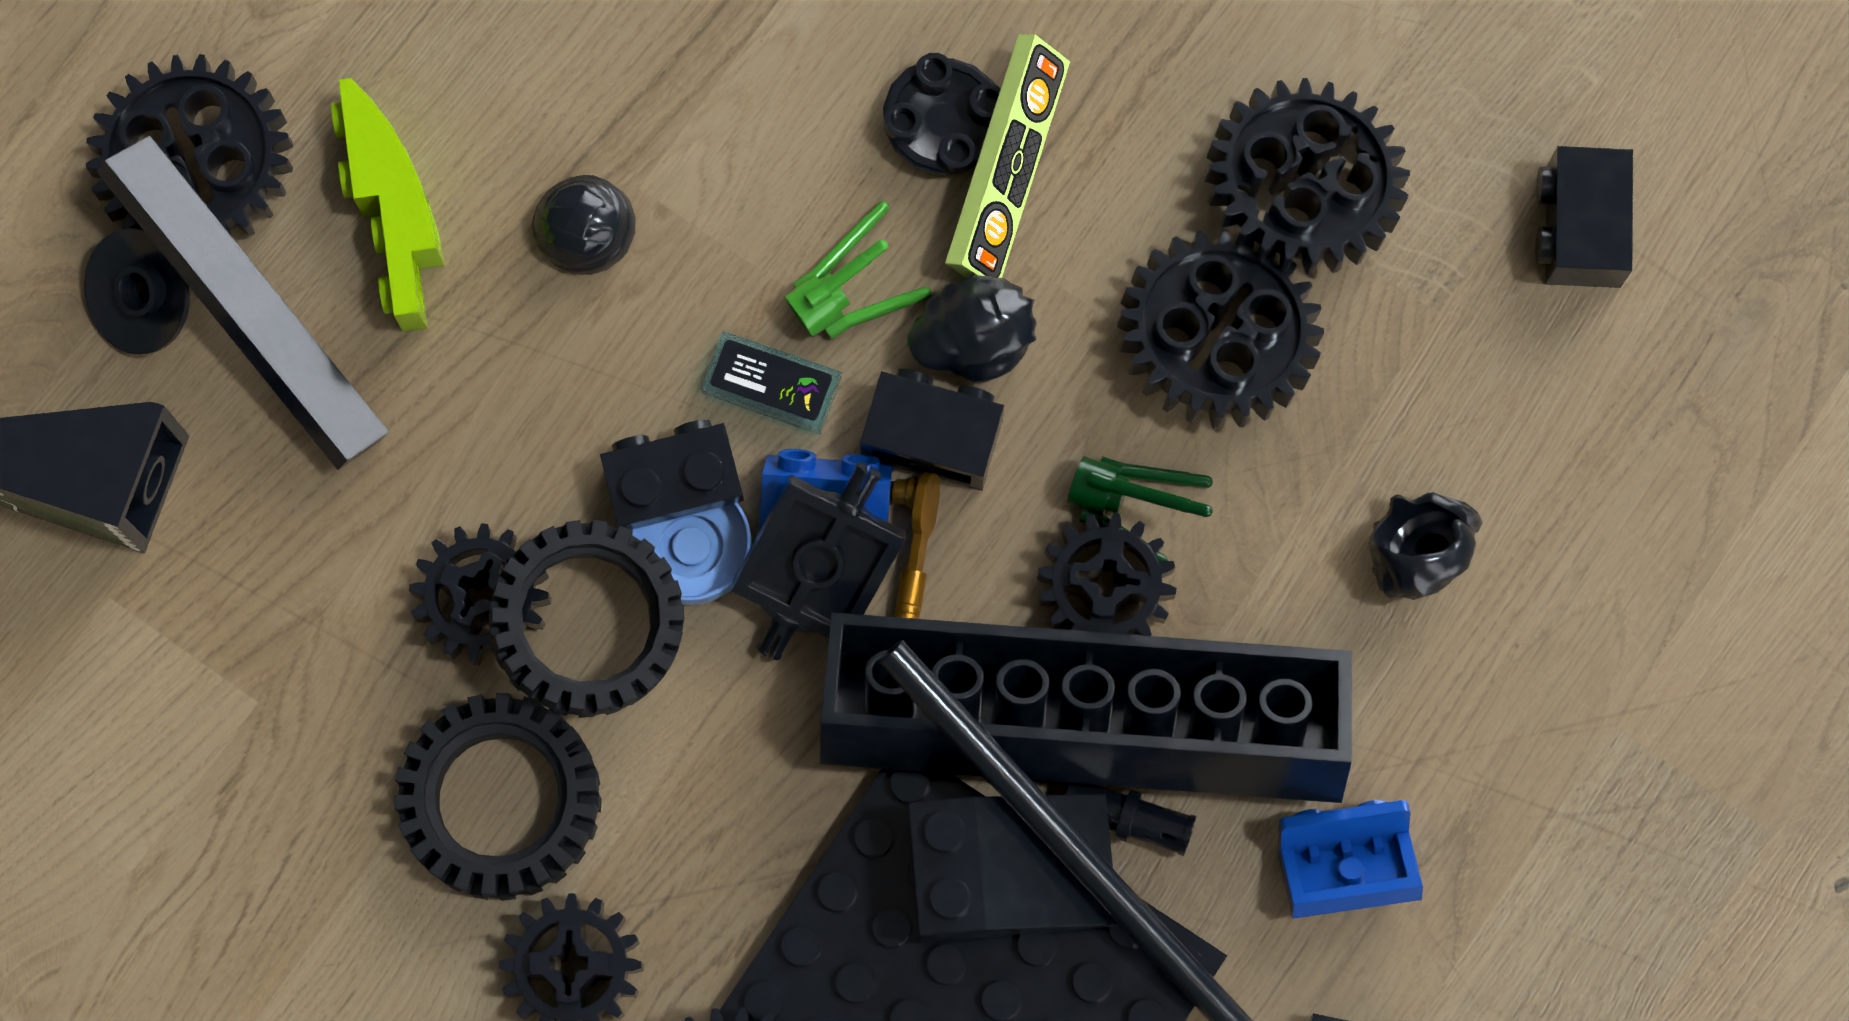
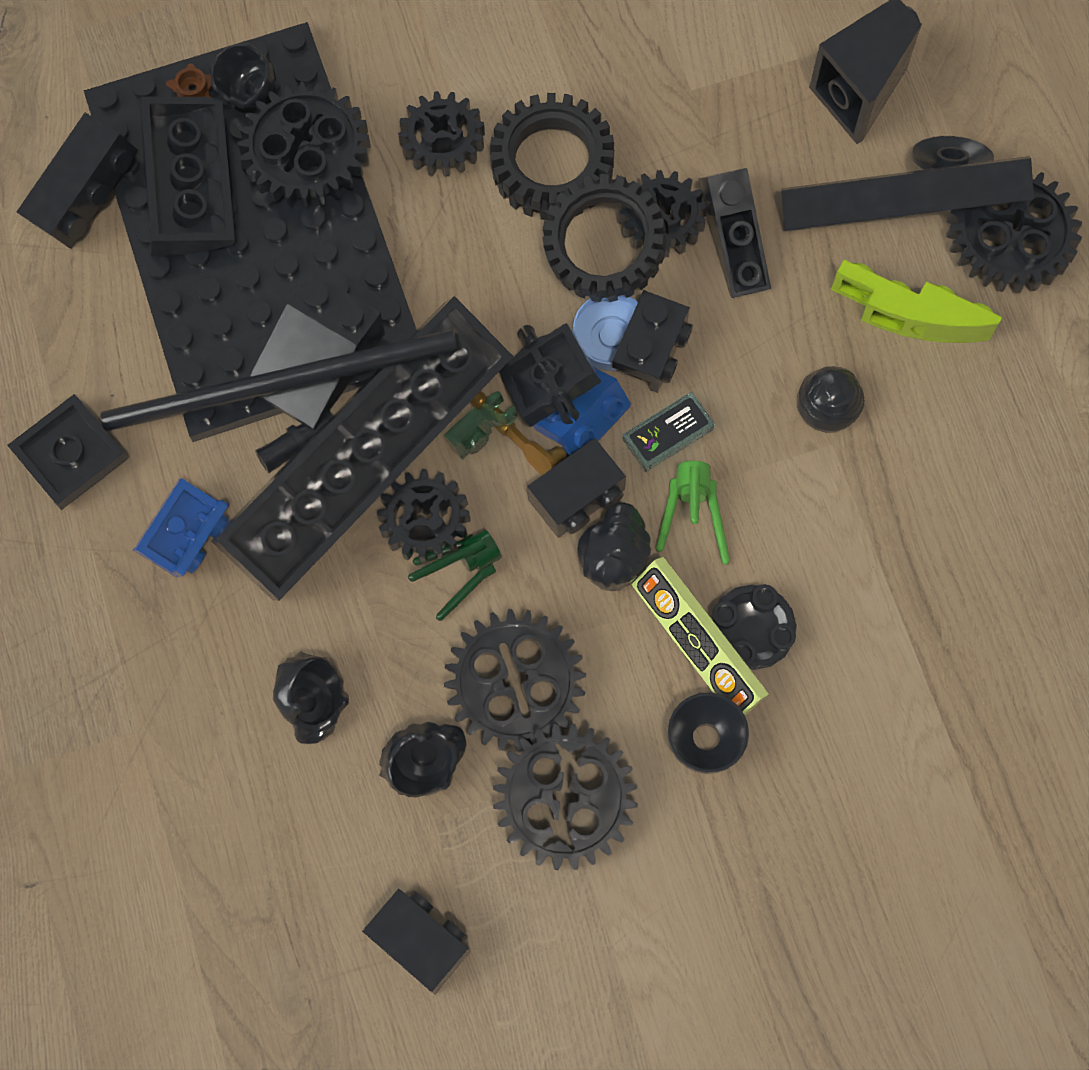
camera: 130 degrees right, 5 degrees down
(434, 491) = (736, 231): none -> black slope
(957, 603) = (474, 429): none -> clear green plate
(1121, 44) = (712, 711): none -> black piece
(1394, 359) = (422, 758): none -> black hair

